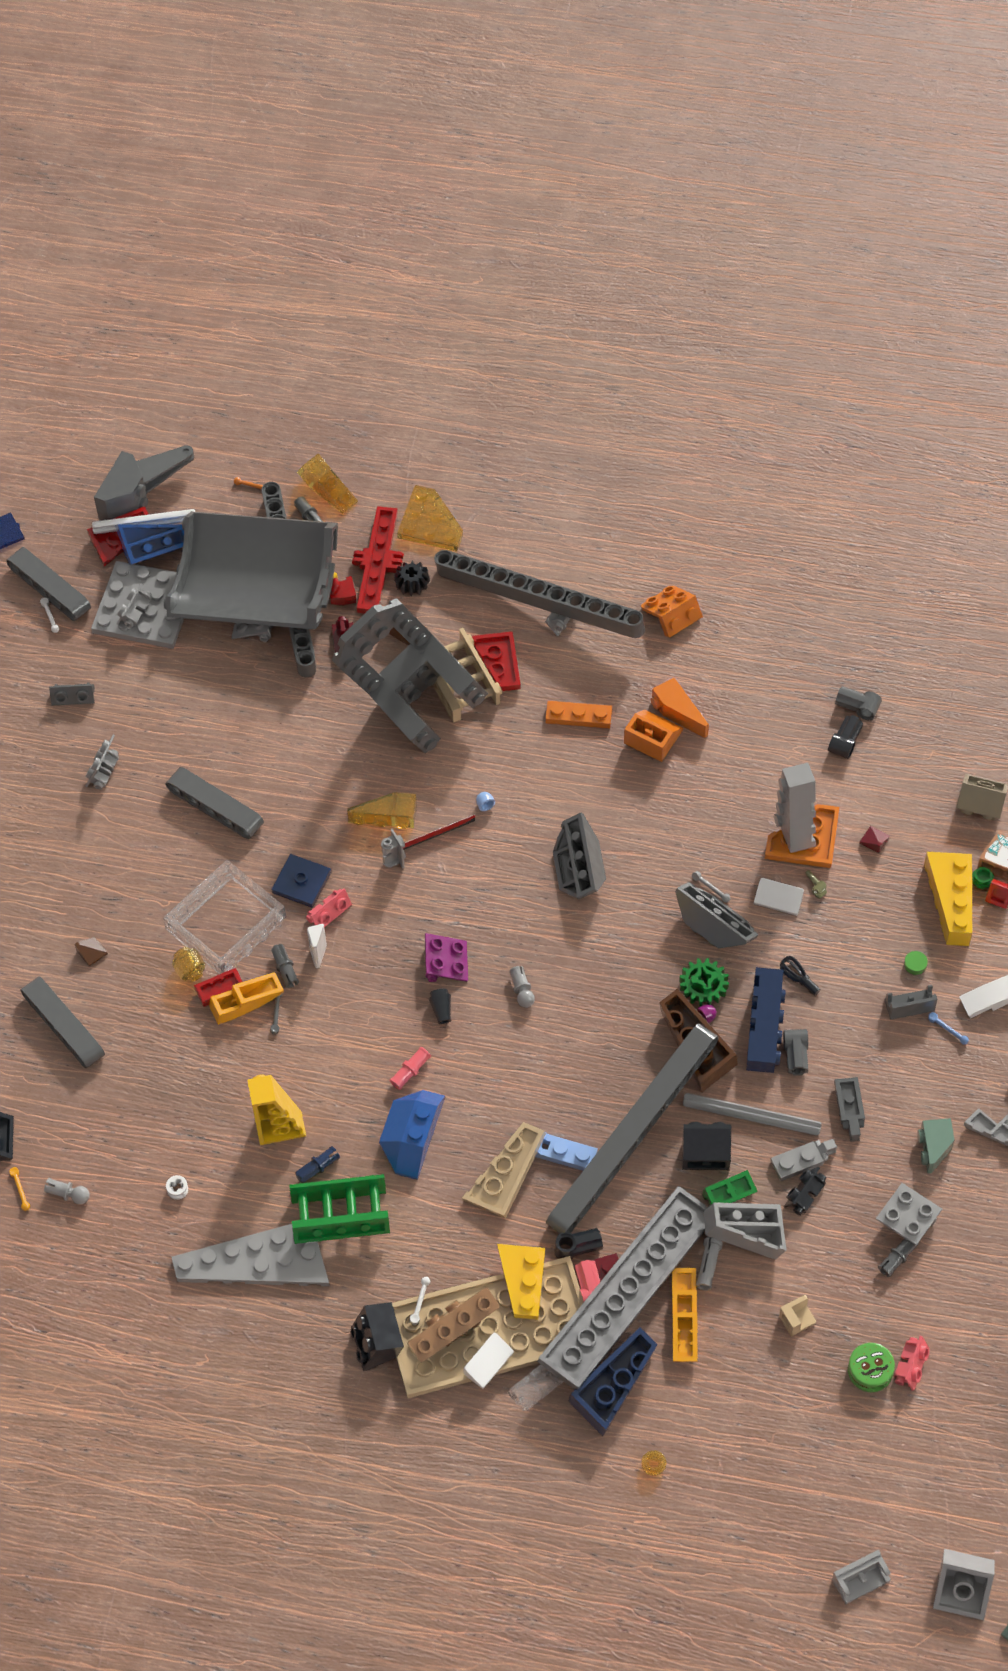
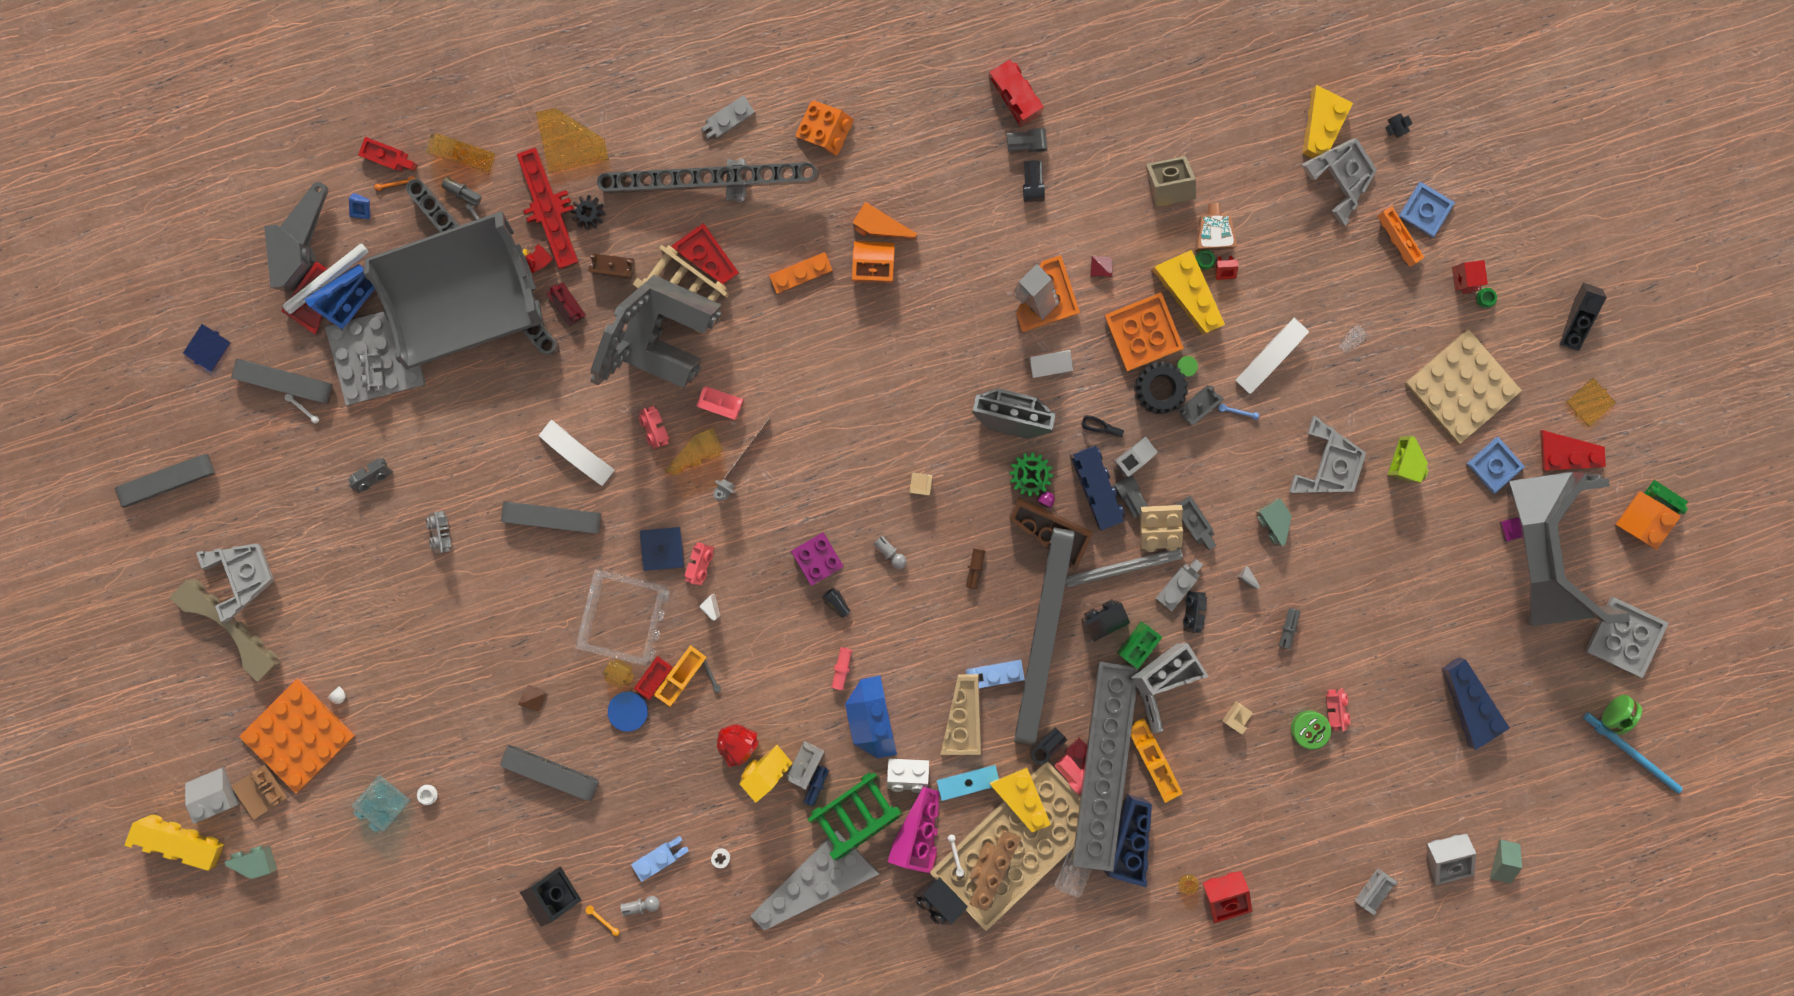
camera: 30 degrees left, 30 degrees up
(115, 1157) = (657, 859): none -> light blue hinge
(174, 1006) = (627, 711): none -> blue tile
(210, 487) = (359, 206): none -> blue slope
(261, 459) = (385, 155): none -> red hinge
(261, 1067) = (736, 744): none -> red helmet
(275, 764) = (576, 453): none -> white slope
(284, 965) = (693, 632): dark grey axle -> none
(319, 1140) = (805, 764): none -> light grey hinge
(360, 766) = (649, 421): none -> coral hinge
(387, 1267) = (915, 840): none -> dark pink wedge
(416, 1202) = (907, 775): none -> white bracket
(434, 784) = (720, 403): none -> coral hinge
(461, 1236) = (955, 785): none -> medium azure tile
(485, 801) = (768, 398): light blue hinge -> none
(488, 1360) = (1032, 877): white slope -> none
(578, 858) = (877, 418): dark grey wedge -> none
(586, 565) = (728, 118): none -> light grey hinge
(588, 941) = (921, 484): none -> tan panel
(599, 1042) = (975, 568): none -> reddish brown axle
(689, 1496) = (1227, 896): none -> red slope
(697, 876) = (975, 377): light grey hinge -> none
(811, 1089) = (1161, 527): none -> tan plate
(818, 1013) = (1135, 457): none -> light grey slope
(819, 889) = (1080, 338): olive hand -> none
(869, 659) = (1016, 92): none -> wedge
(878, 1185) = (1247, 576): none -> light grey slope
(882, 949) = (1178, 383): none -> black tyre
(887, 911) = (1143, 331): none -> orange plate
(909, 1214) = (1283, 594): light grey hinge -> none

